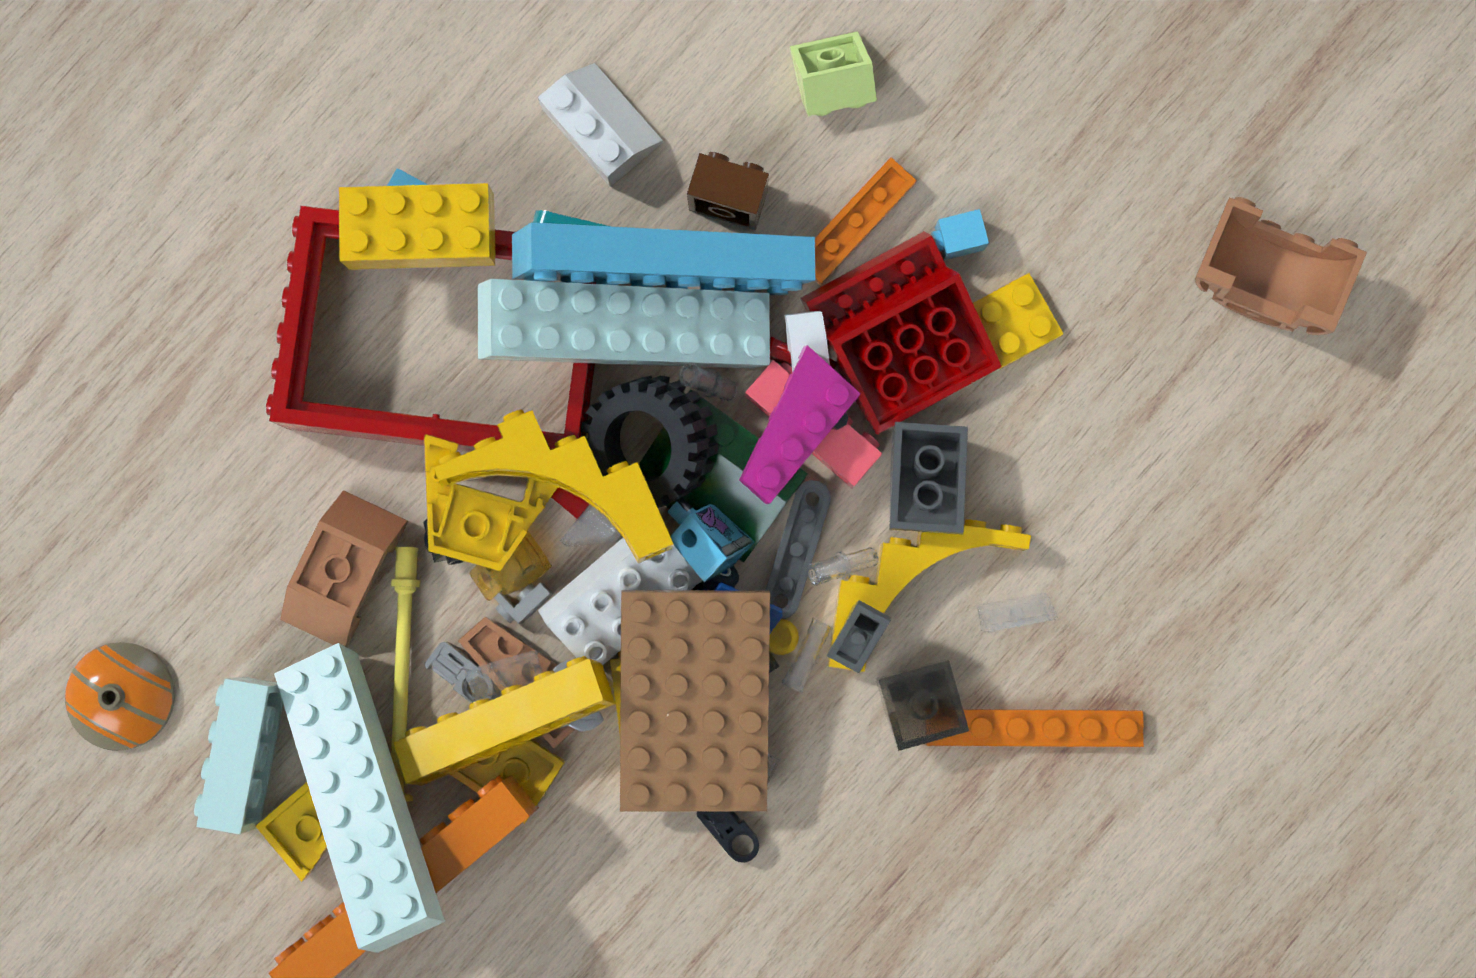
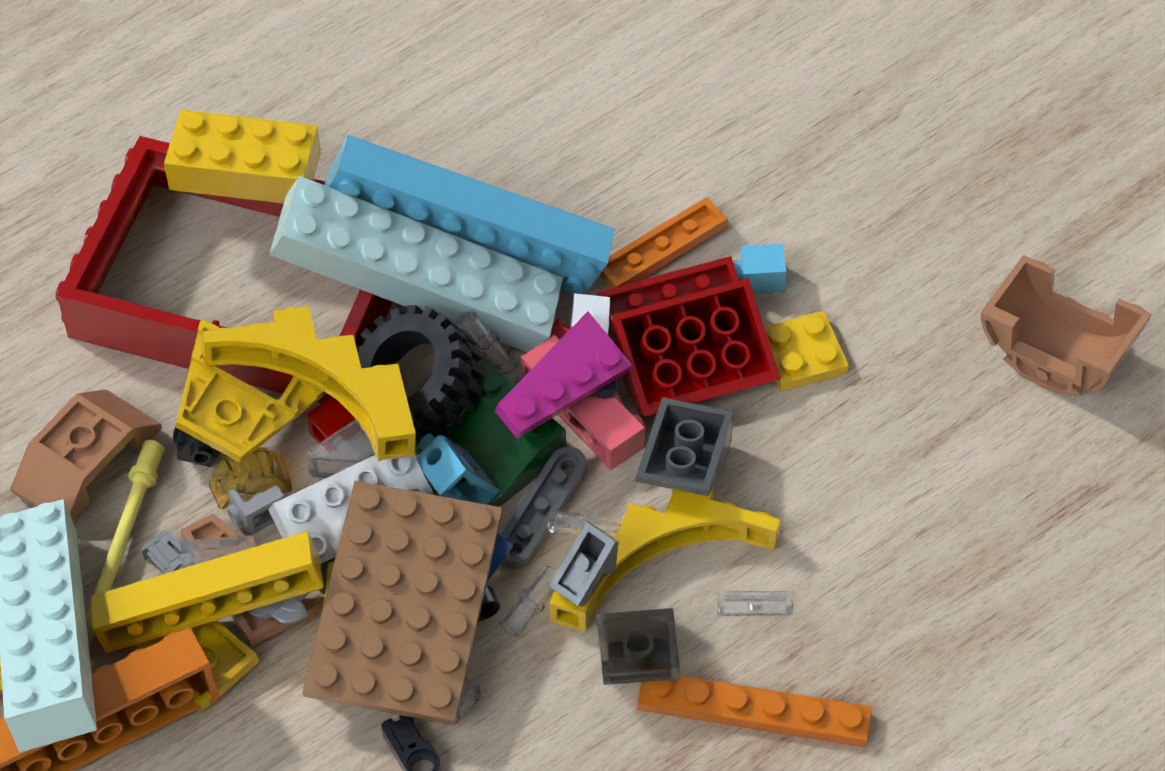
camera: 10 degrees right, 30 degrees down
(599, 122) = (433, 130): white slope -> none
(728, 190) = (545, 181): reddish brown brick -> none
(783, 638) = (507, 583): yellow tile -> none
(834, 74) = (666, 129): yellowish green slope -> none

